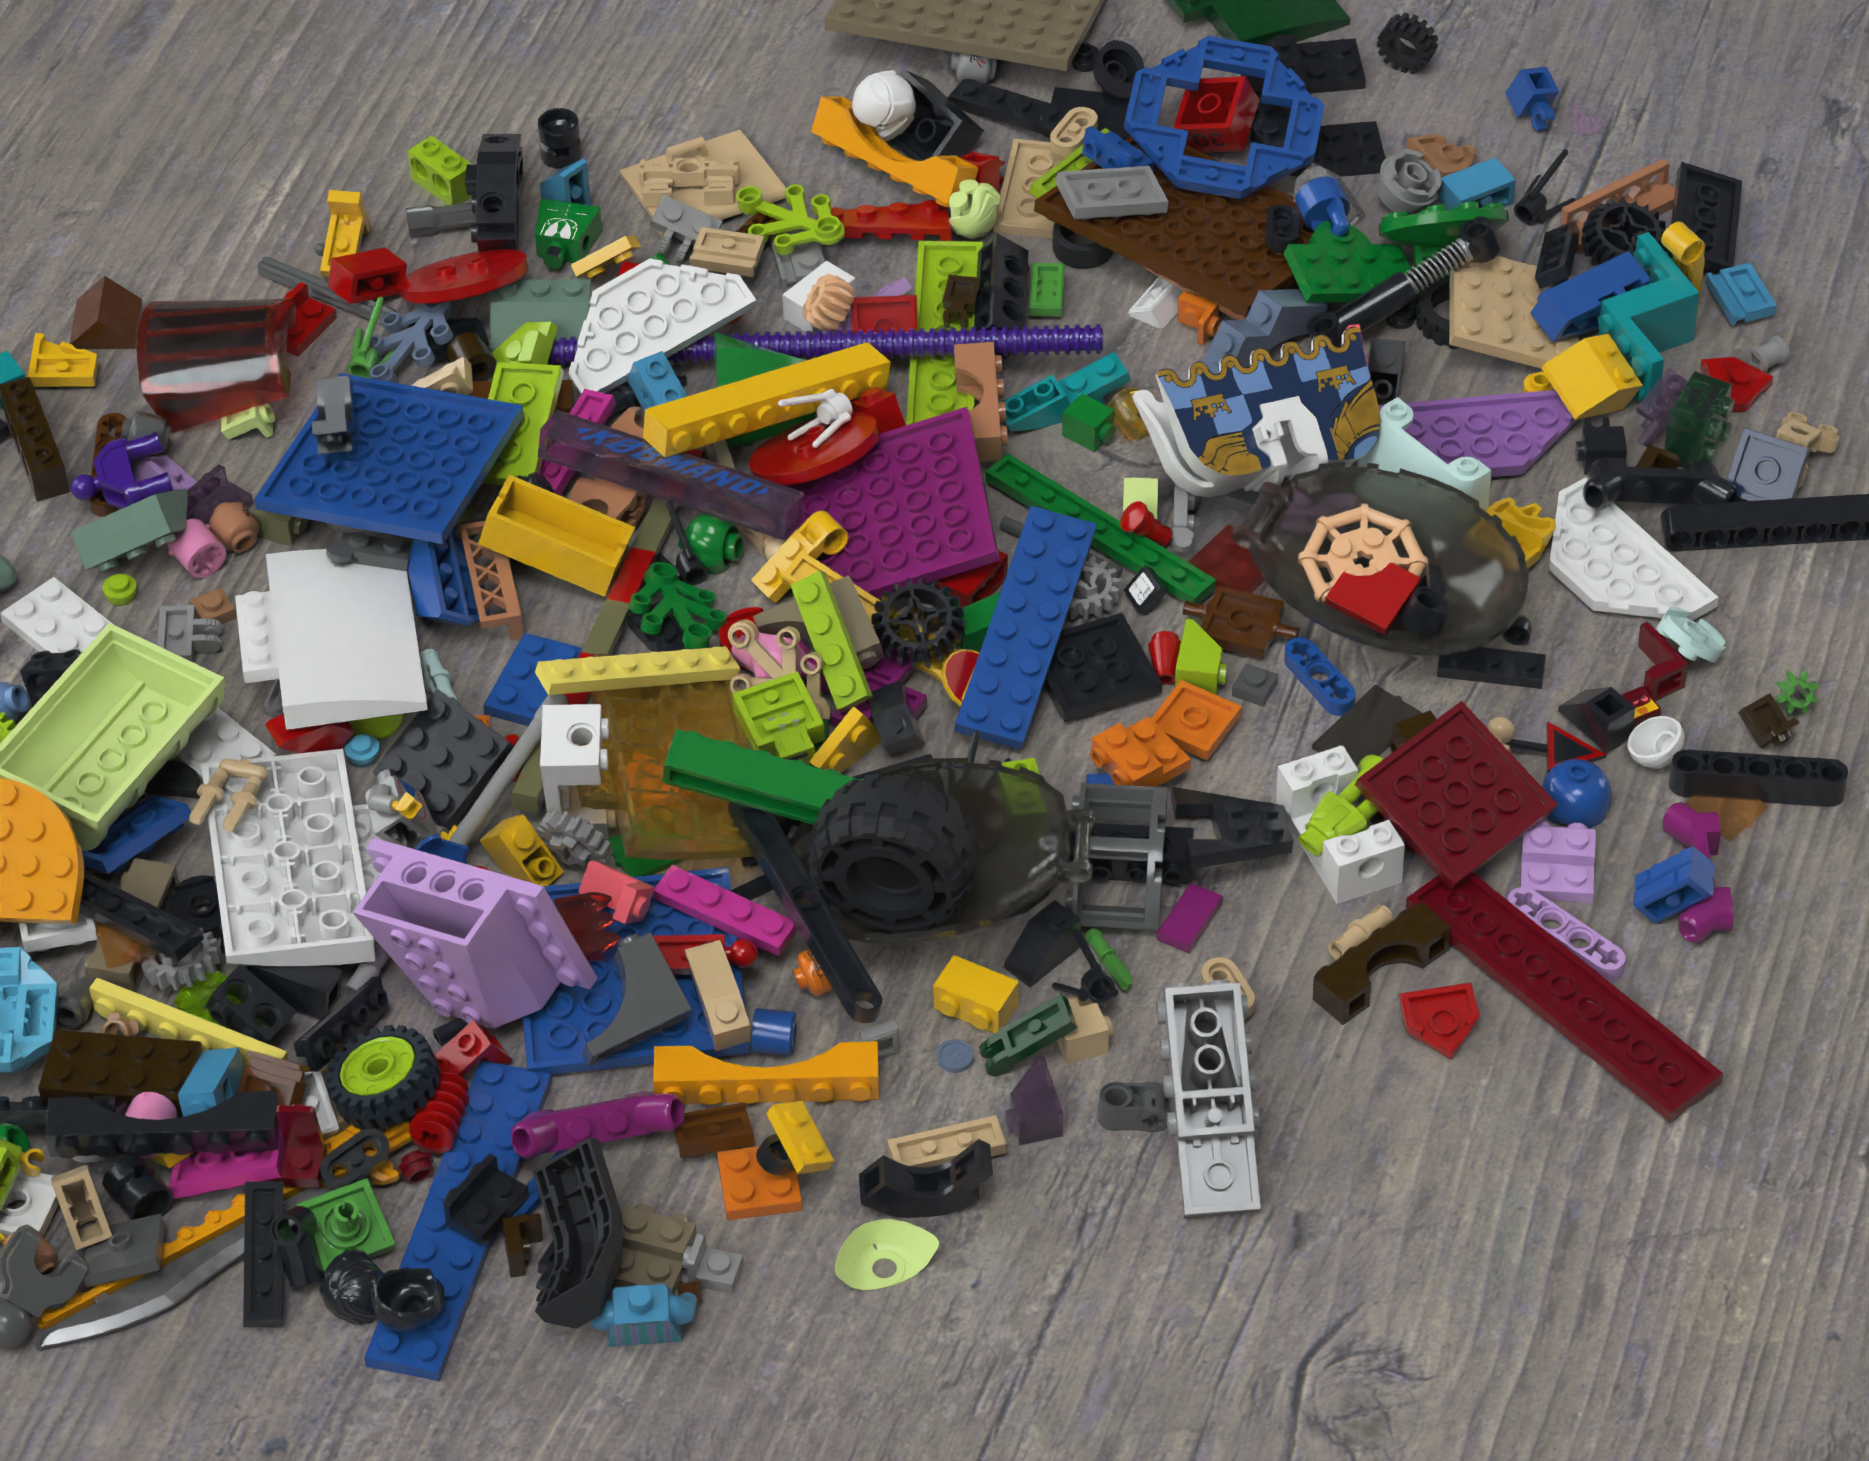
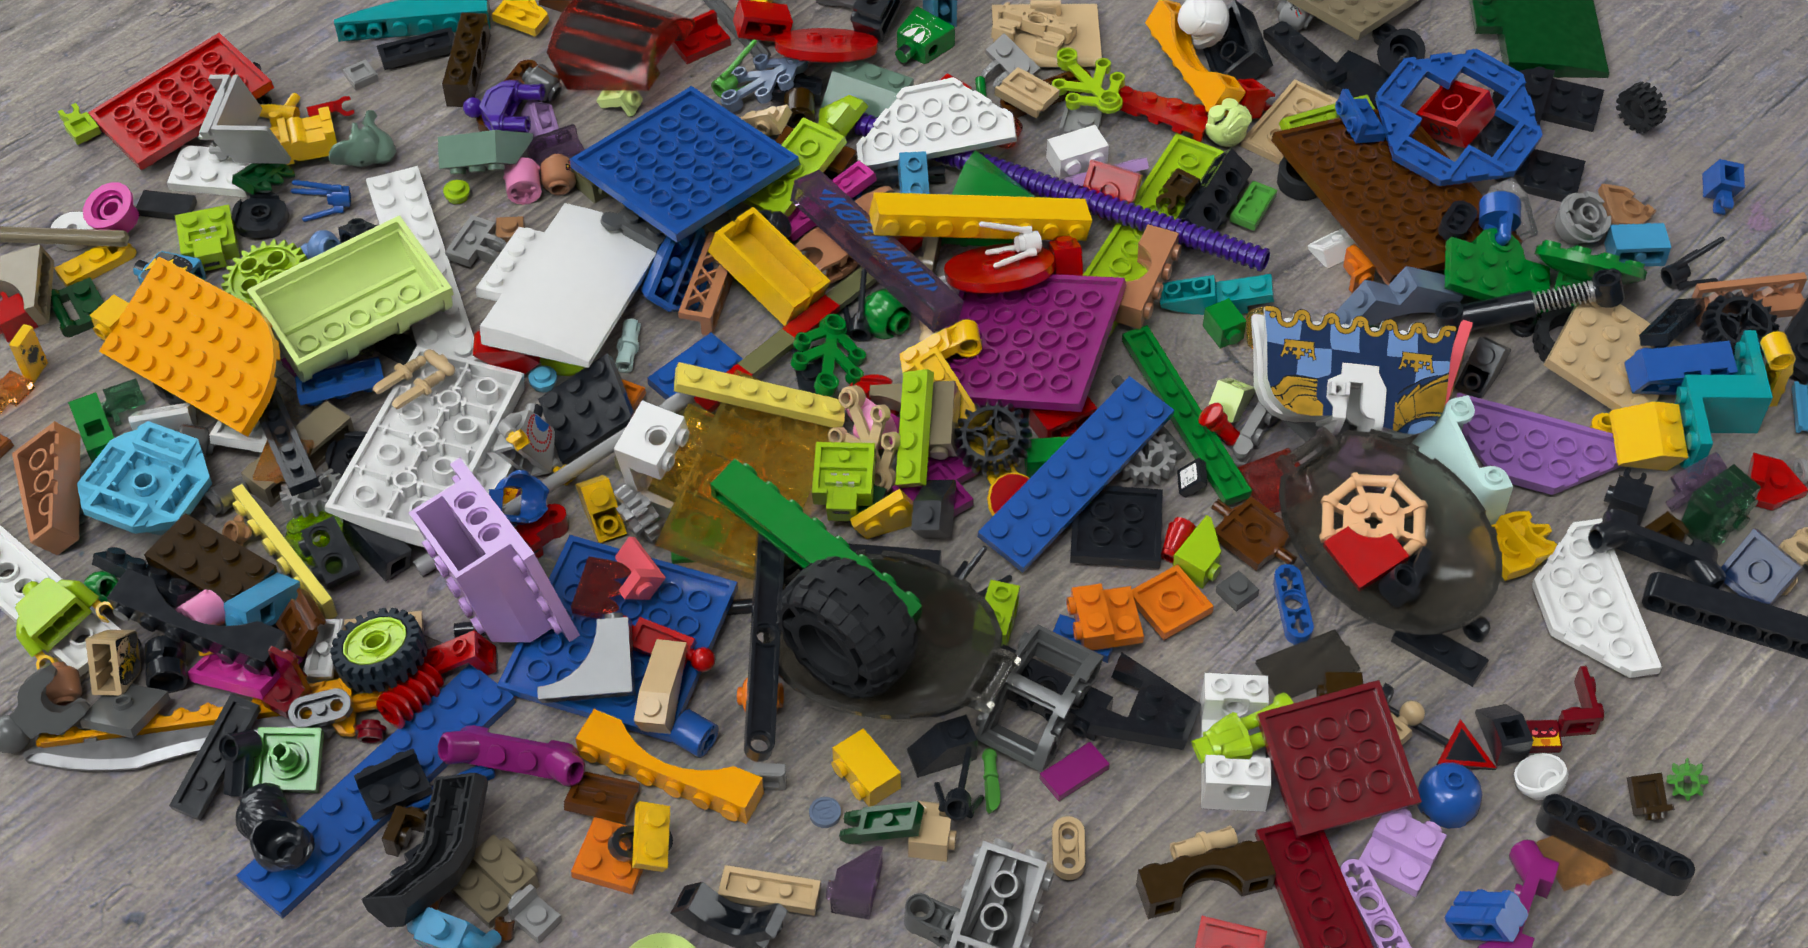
camera: 25 degrees right, 5 degrees up
(336, 415) = (658, 119): arch -> none
(342, 1024) = (382, 594): black bracket -> none
(595, 263) = (944, 64): yellow plate -> none
(725, 910) = (711, 616): dark pink plate -> none
(828, 302) = (1072, 157): light nougat gear -> none
(1071, 130) = (1330, 90): tan plate -> none
(1111, 192) = (1336, 146): light grey plate -> none
(1694, 638) = (1620, 693): light aqua plate -> none

